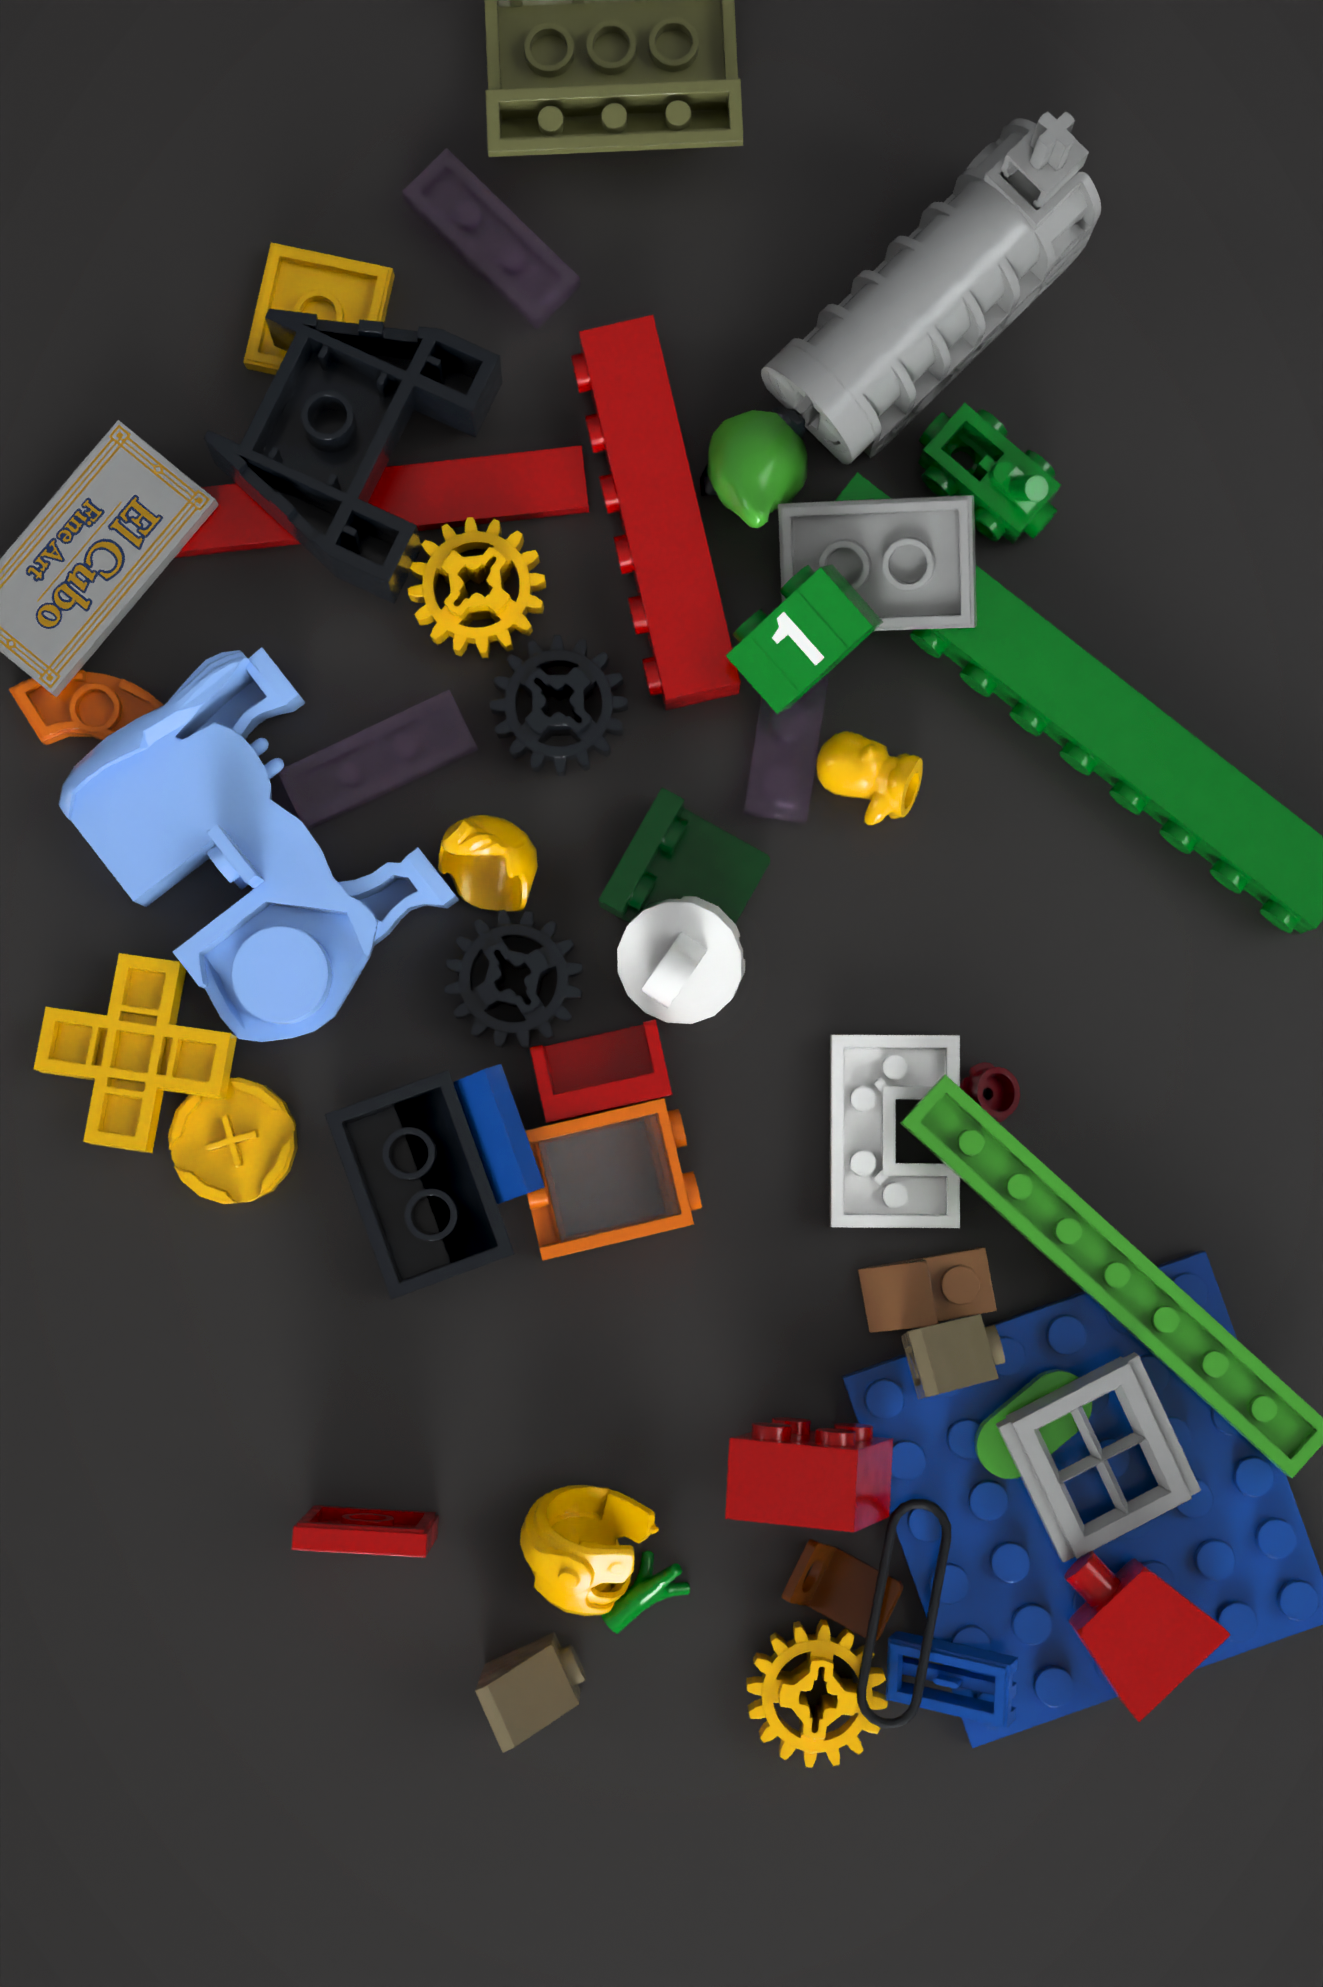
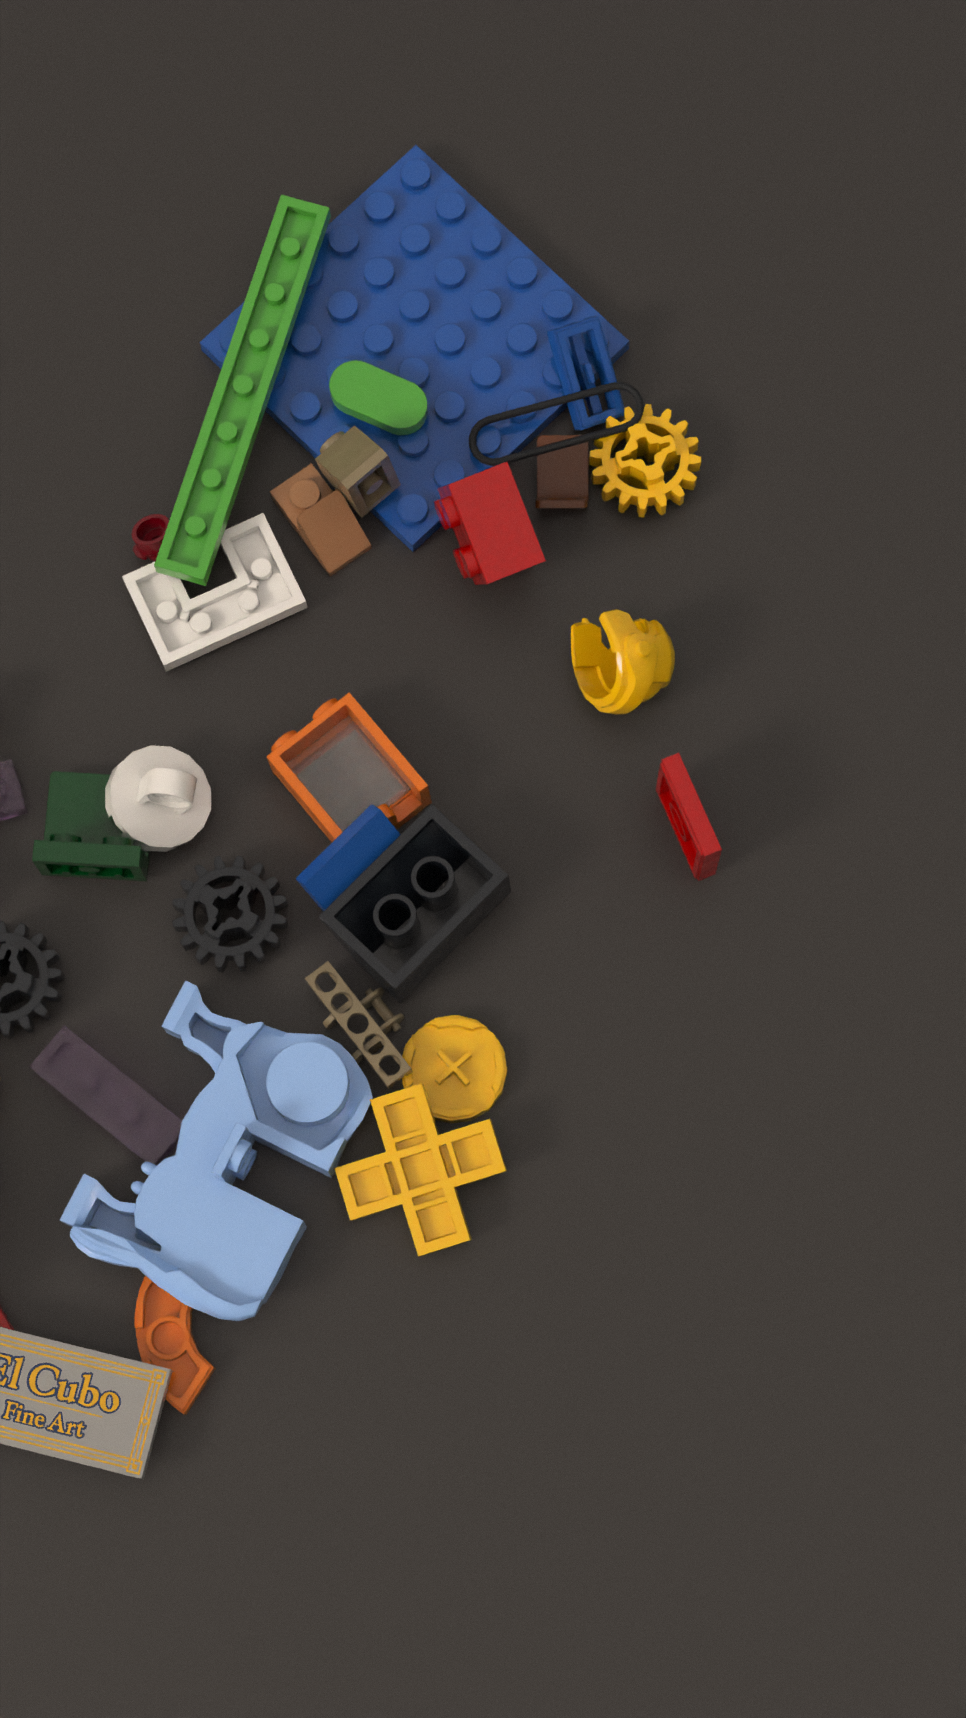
camera: 115 degrees left, 10 degrees down
(306, 1074) = (356, 1007): none -> dark tan piece
(489, 862) = (149, 970): yellow hair -> none
(529, 1689) = (742, 653): dark tan slope -> none
(601, 1072) = (269, 817): red panel -> none
(645, 1592) = (625, 602): green bar -> none
(1139, 1630) = (487, 260): red torso -> none
(1150, 1431) = (413, 368): light grey piece -> none

